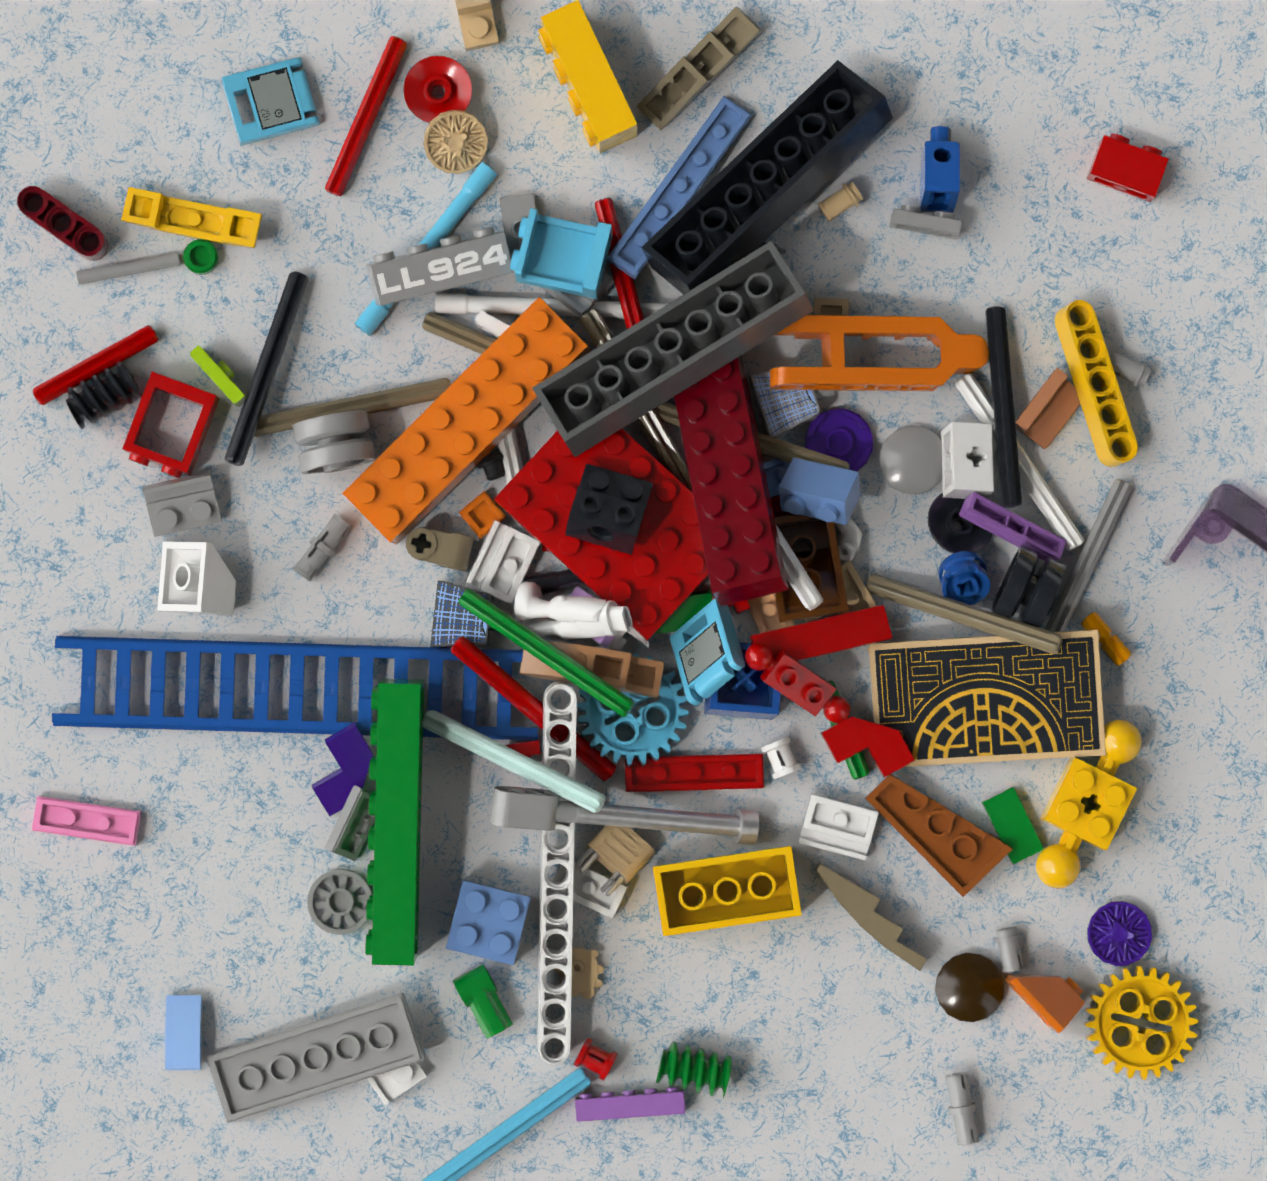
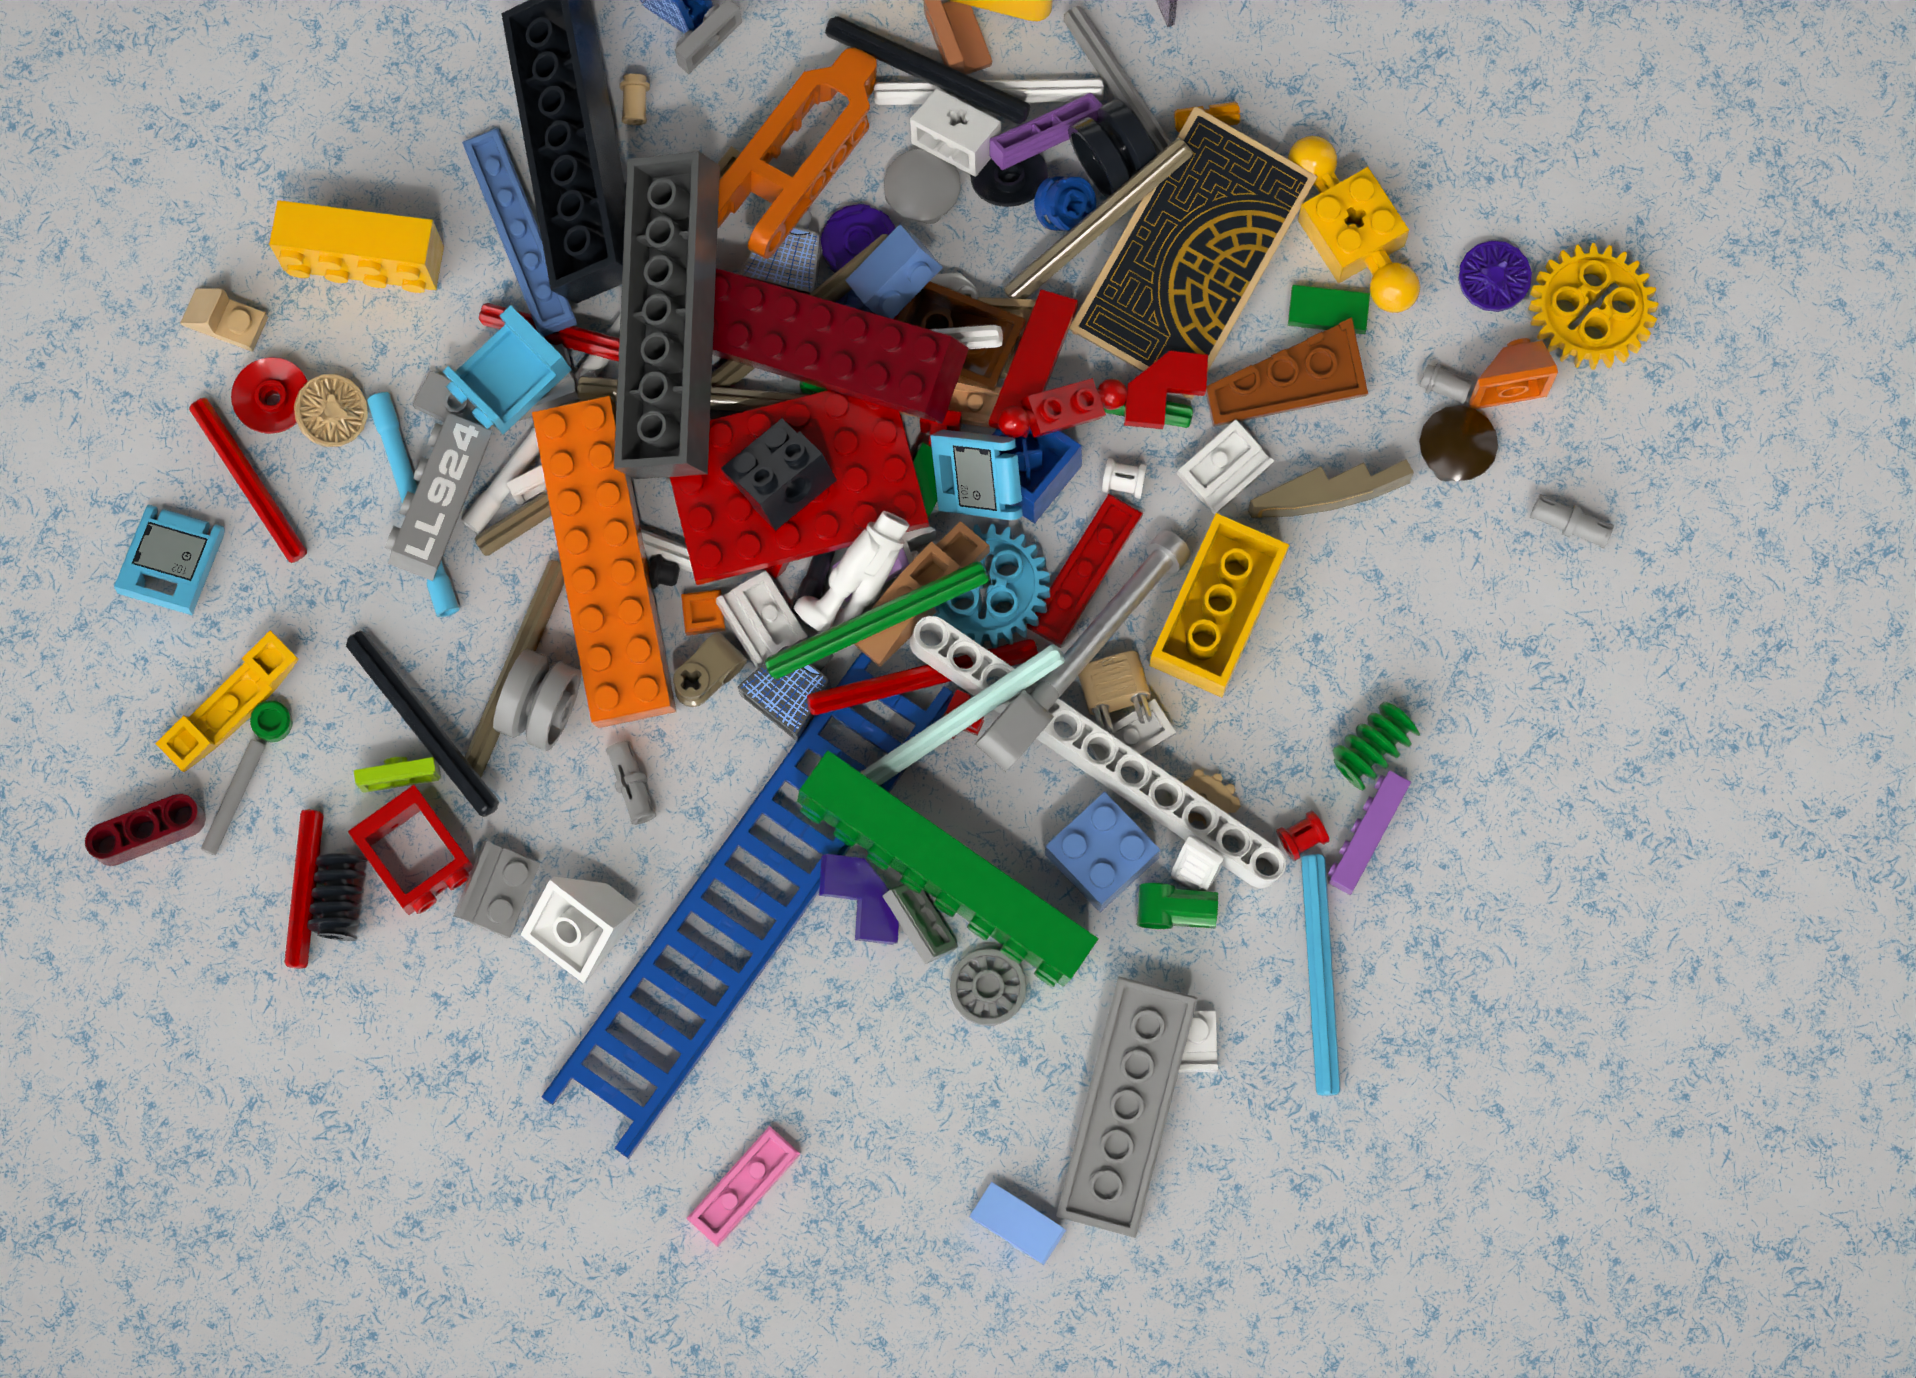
camera: 50 degrees left, 10 degrees down
(520, 997) = (1197, 865): none -> white slope
(699, 68) = (420, 146): dark tan slope -> none

